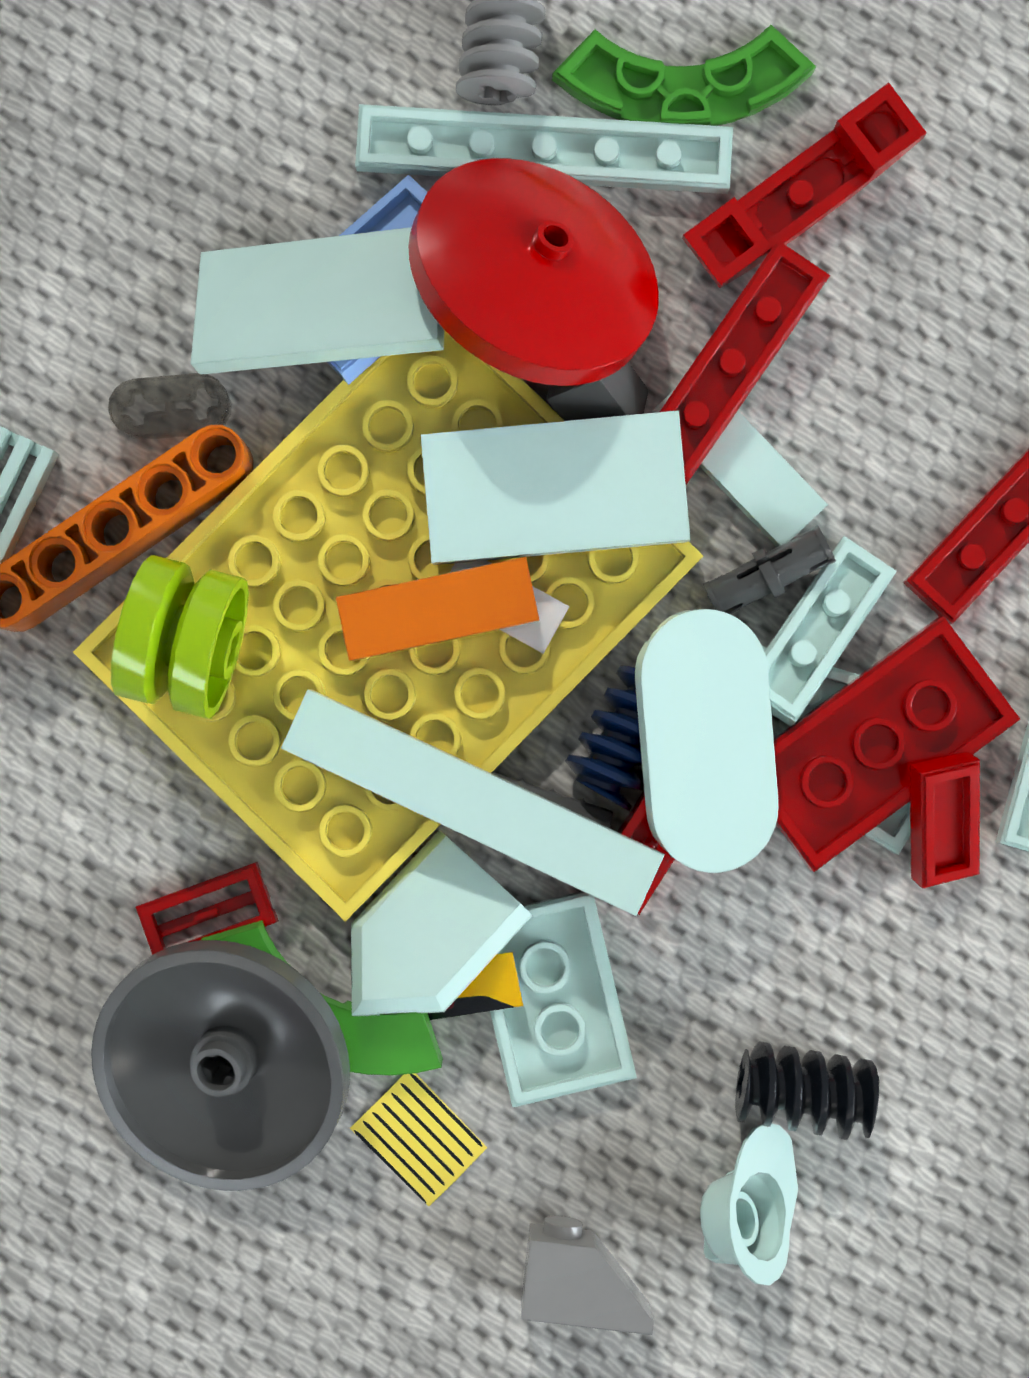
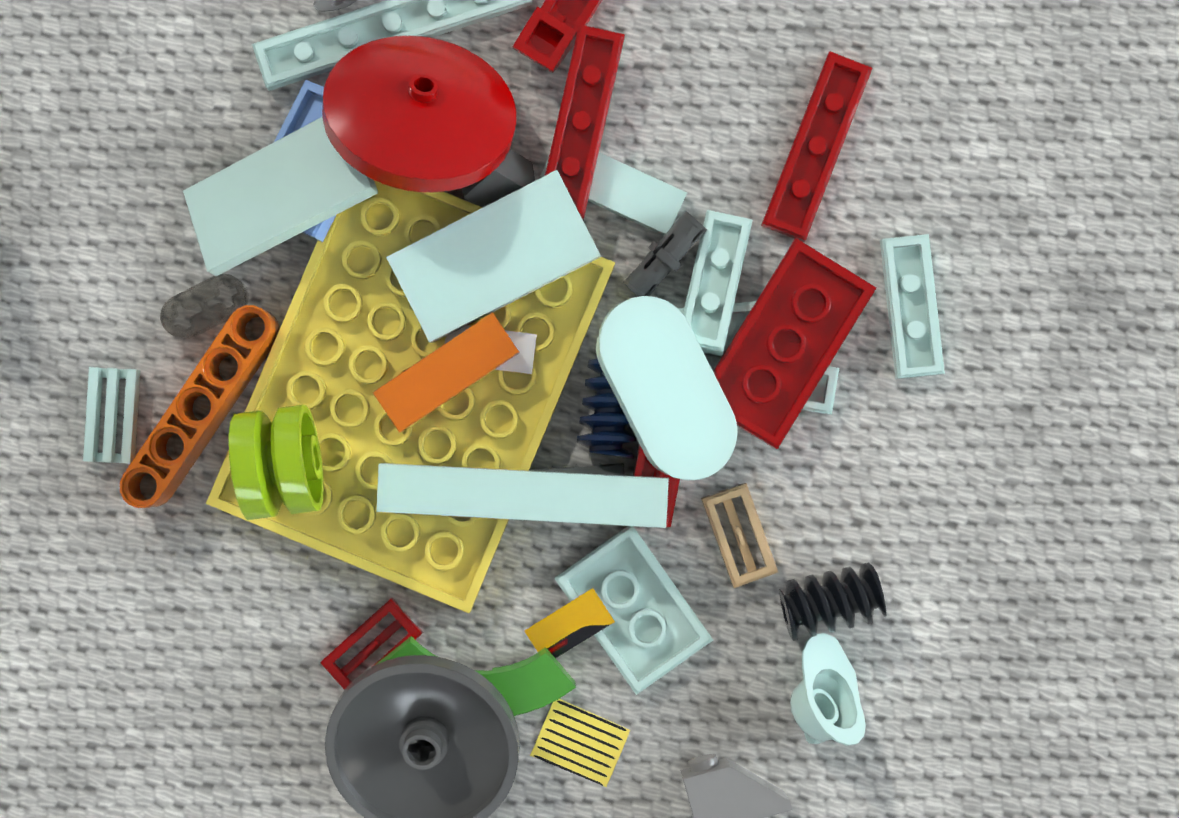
camera: 25 degrees left, 0 degrees up
(429, 933) = (530, 597): light aqua tile -> none
(723, 905) = (725, 497): none -> tan tile
(945, 819) = (852, 377): red tile -> none

